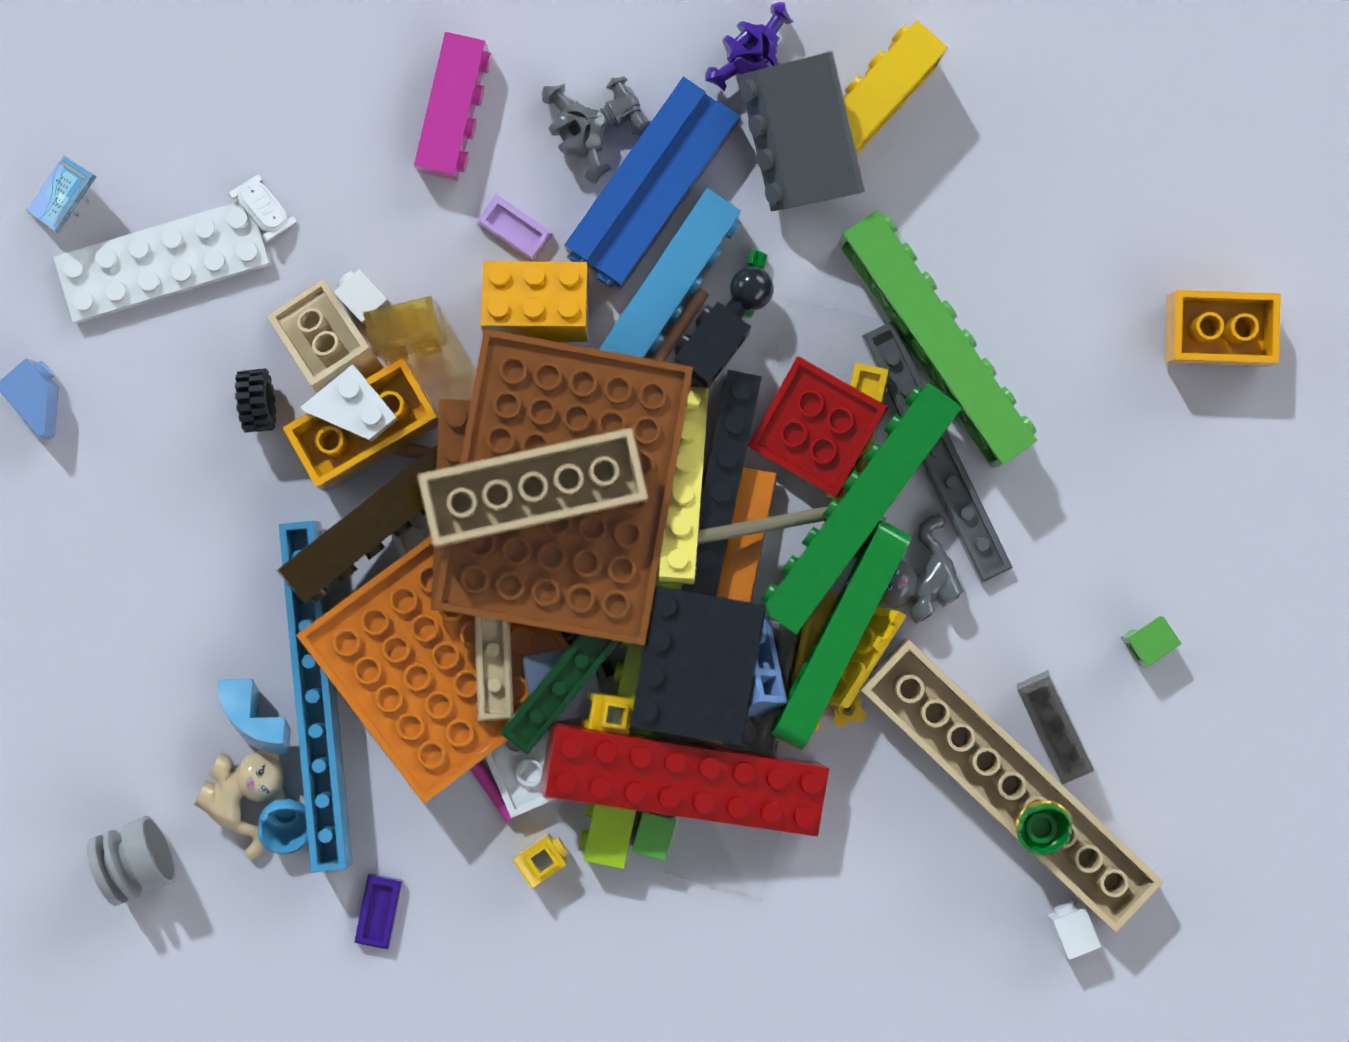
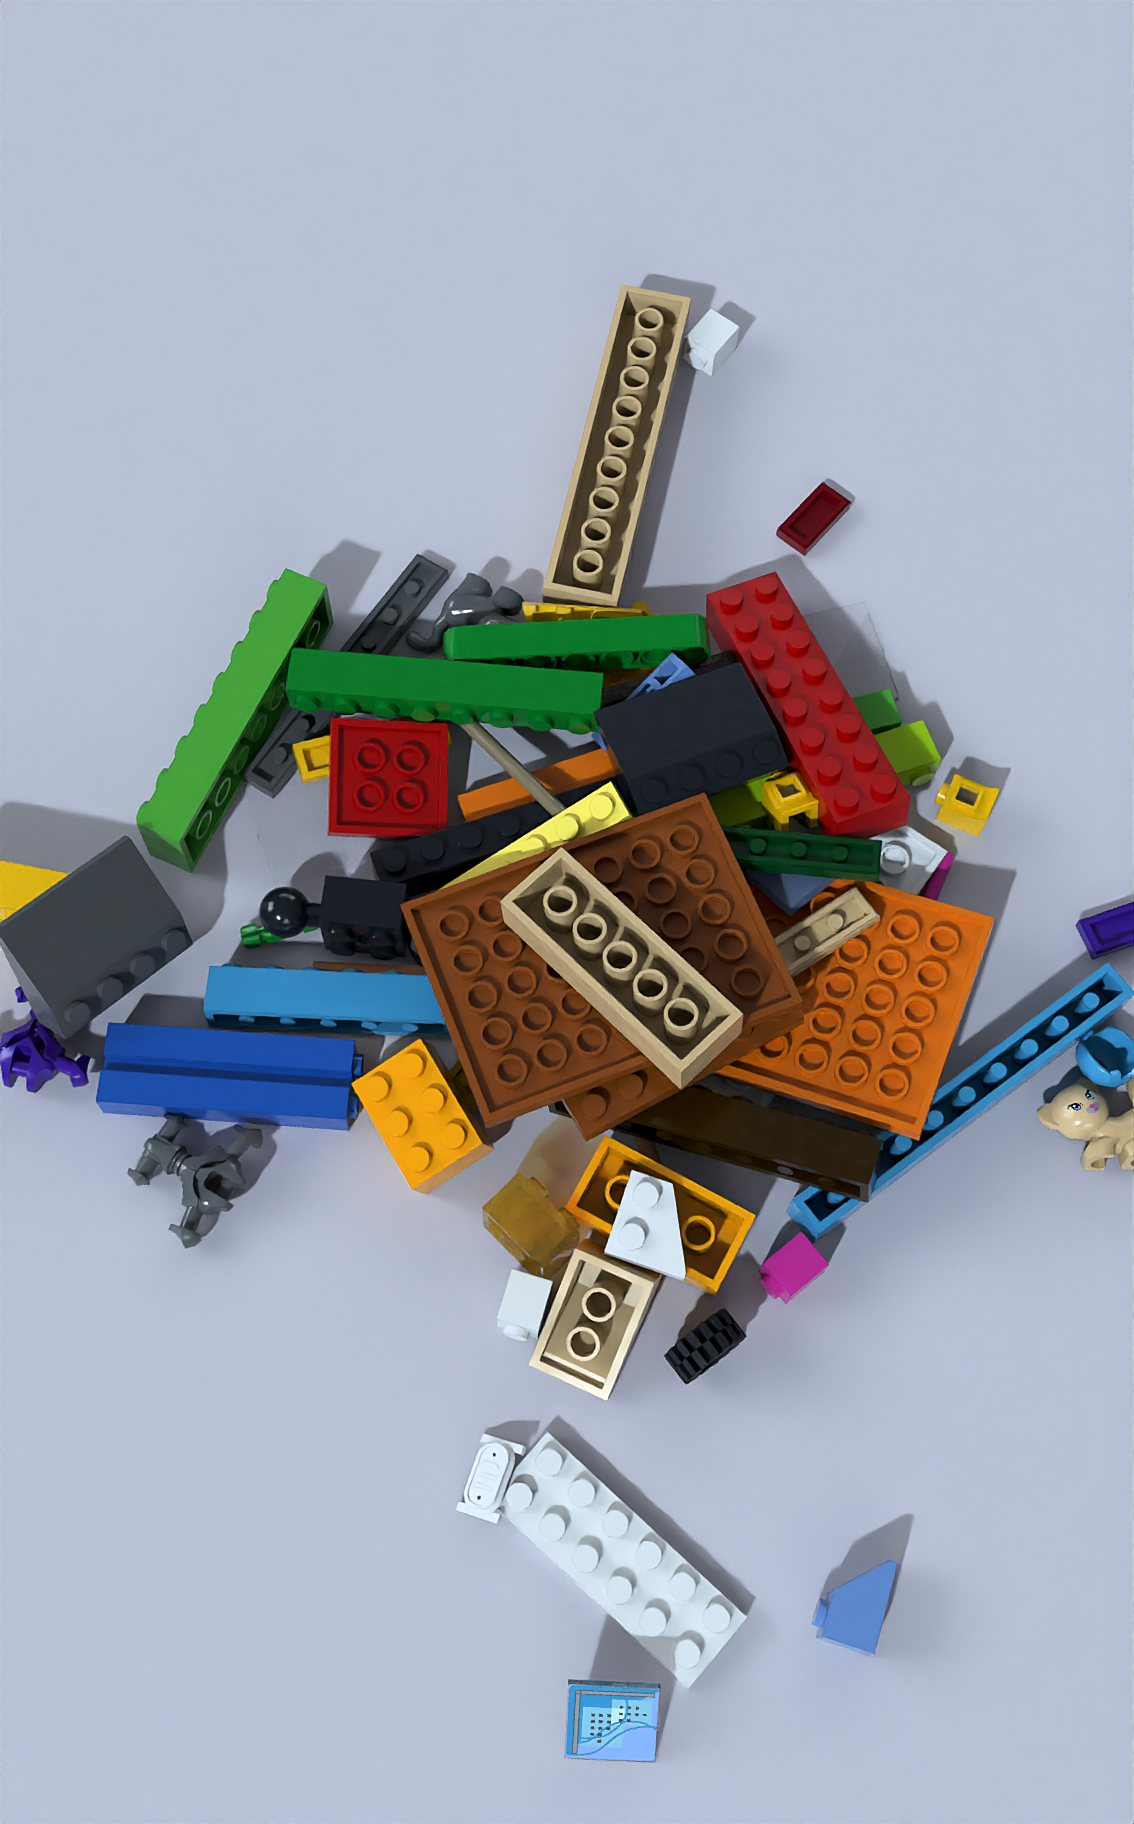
camera: 130 degrees left, 20 degrees down
(240, 704) = (1027, 1171): dark azure brick -> none
(275, 496) = (792, 1268): none -> dark pink brick
(452, 106) = (258, 1332): dark pink brick -> none
(514, 228) = (355, 1194): lavender tile -> none
(860, 909) = (813, 518): none -> dark red tile
(1044, 827) = (639, 387): green hair -> none
(1055, 727) = (541, 440): clear smoke brick -> none
(1151, 641) = (417, 405): bright green panel -> none
(1222, 328) = (83, 490): light orange brick -> none

